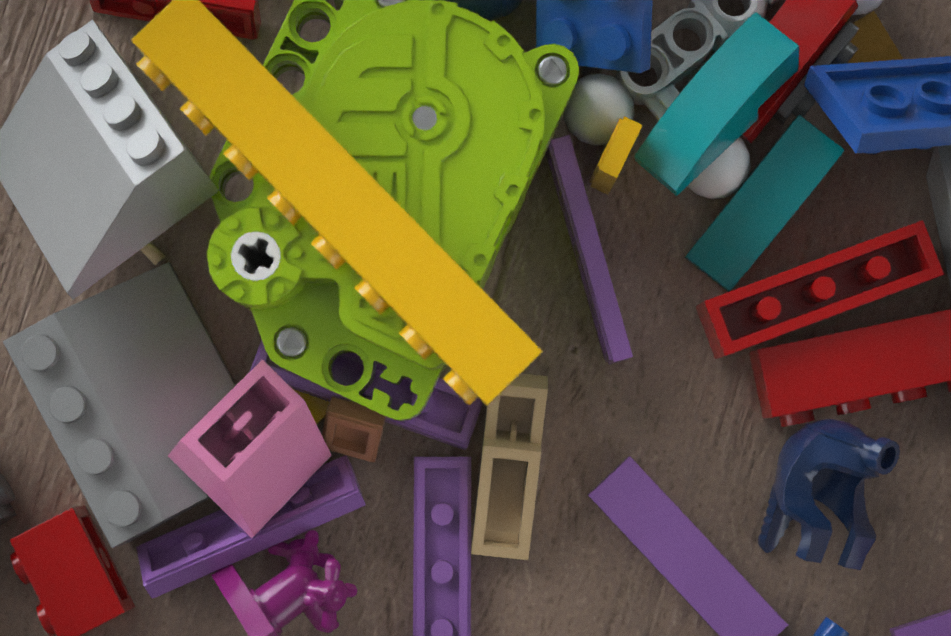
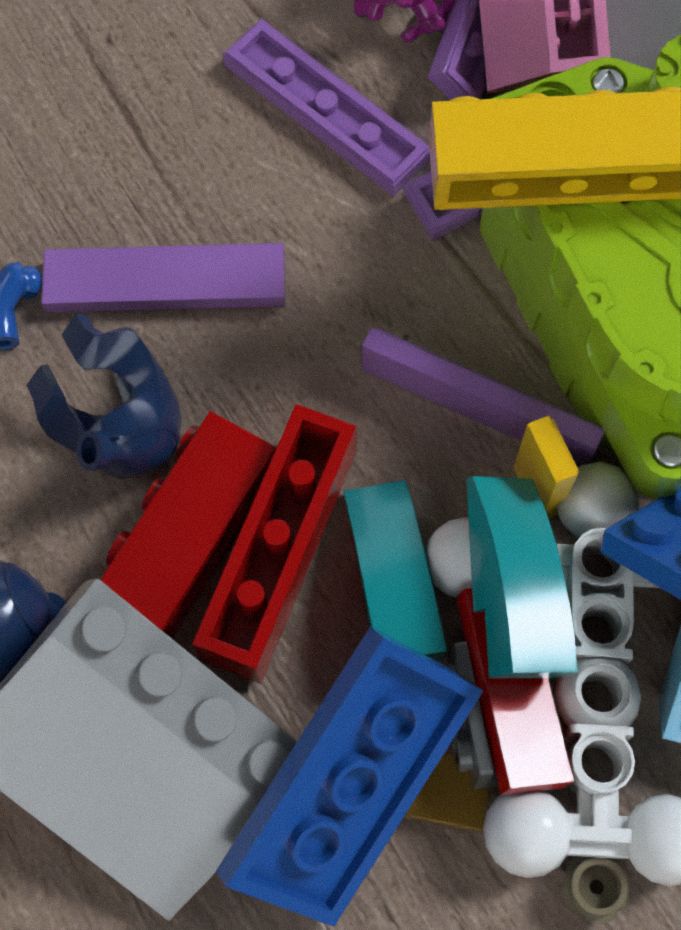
camera: 135 degrees right, 15 degrees down
(510, 469) = (365, 209): tan slope -> none

